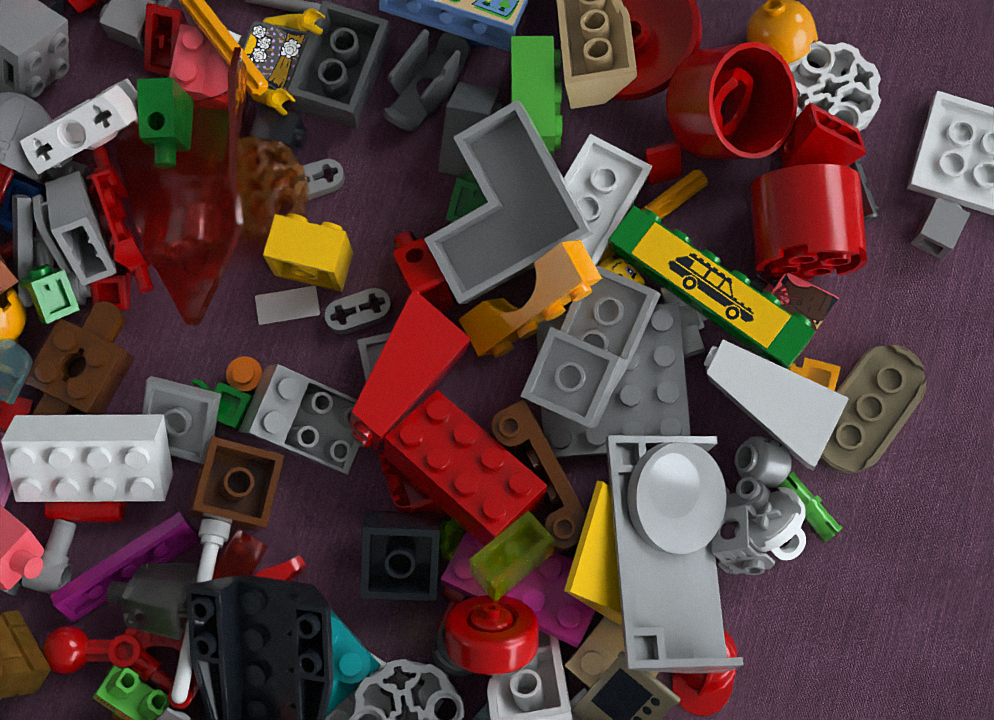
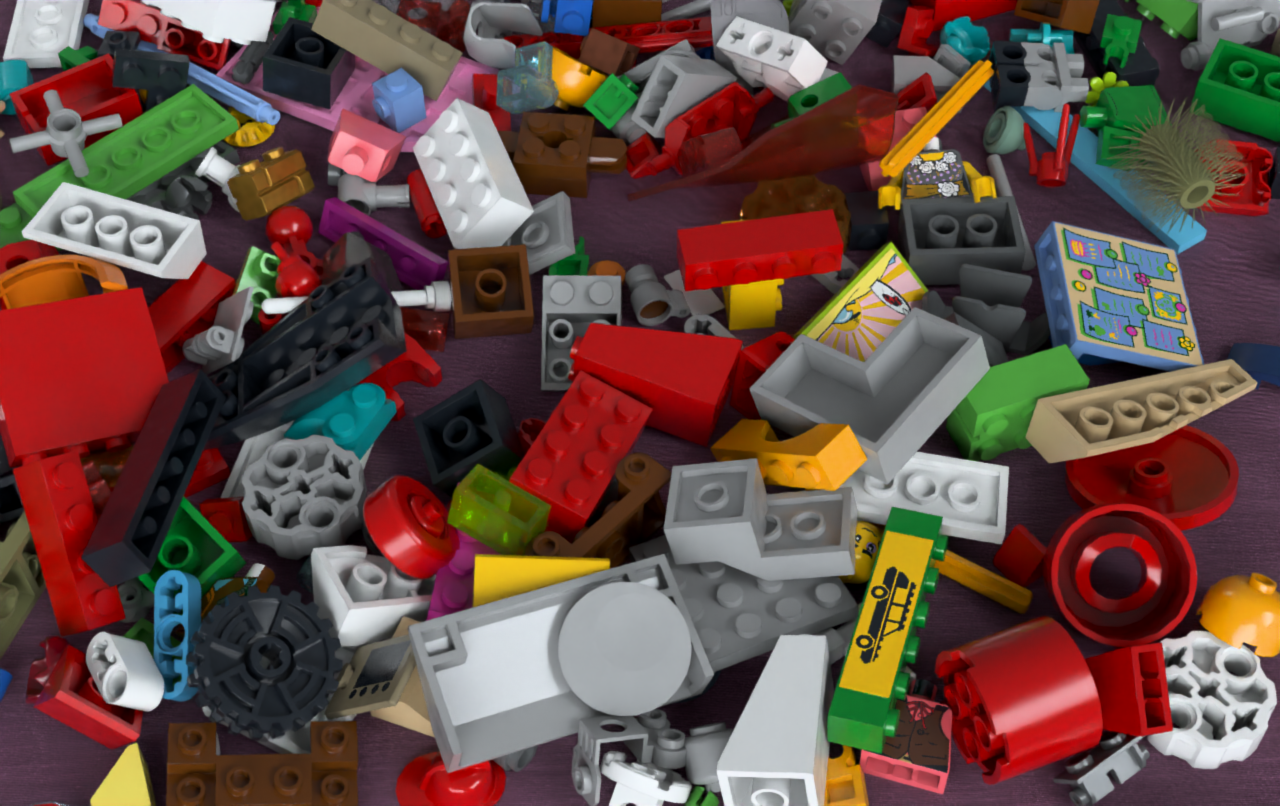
camera: 70 degrees right, 25 degrees down
(152, 659) = (295, 276): none -> red piece
(292, 344) = (651, 299): none -> light grey piece
(323, 237) = (759, 250): none -> red brick
(391, 176) = (868, 305): none -> tile

